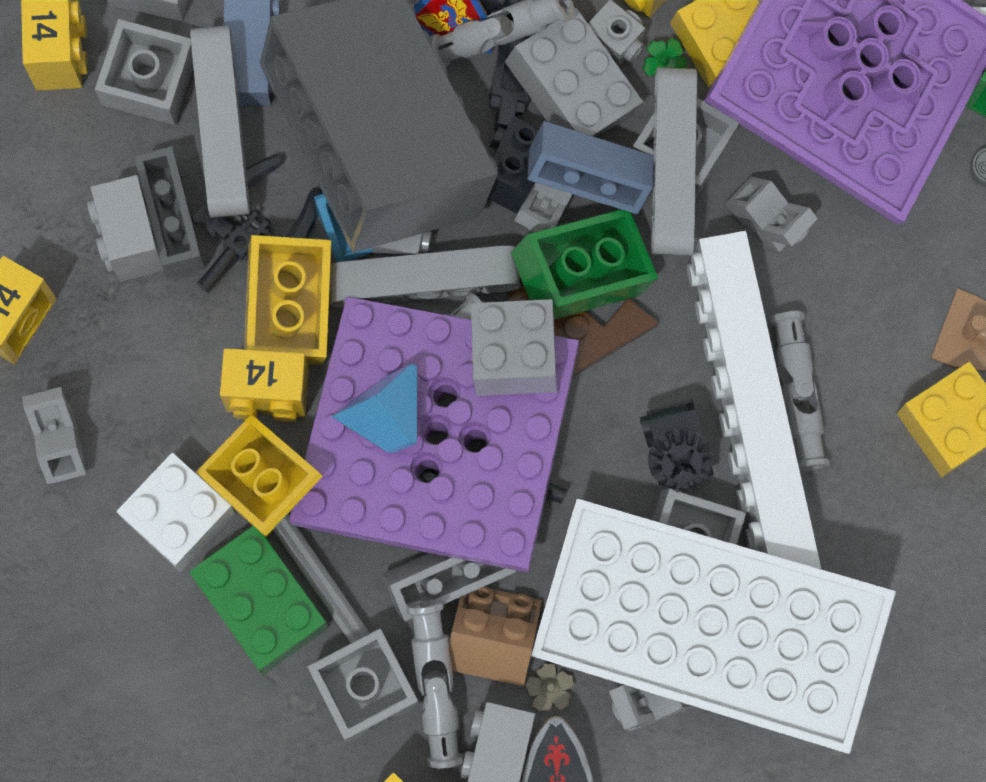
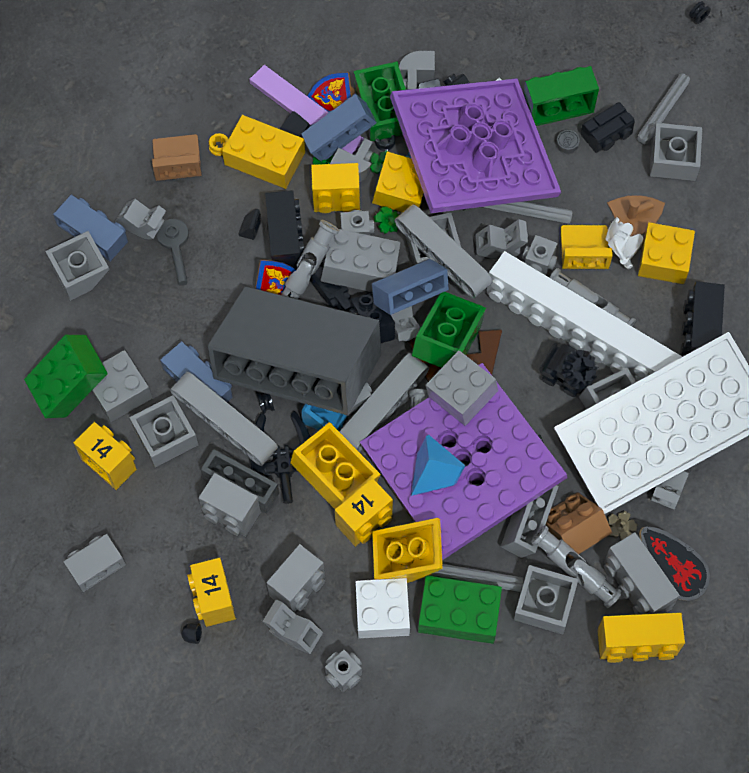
camera: 40 degrees left, 10 degrees down
(69, 550) = (346, 678): none -> light grey brick
(111, 387) = (297, 579): none -> light grey brick
(292, 150) = (265, 402): none -> black bush
(796, 277) = (541, 254): none -> light grey brick
(862, 225) = (536, 210): none -> light grey axle
(867, 317) = (585, 247): none -> yellow bracket
(904, 545) = (703, 316): none -> black brick
(915, 357) = (622, 243): none -> white helmet

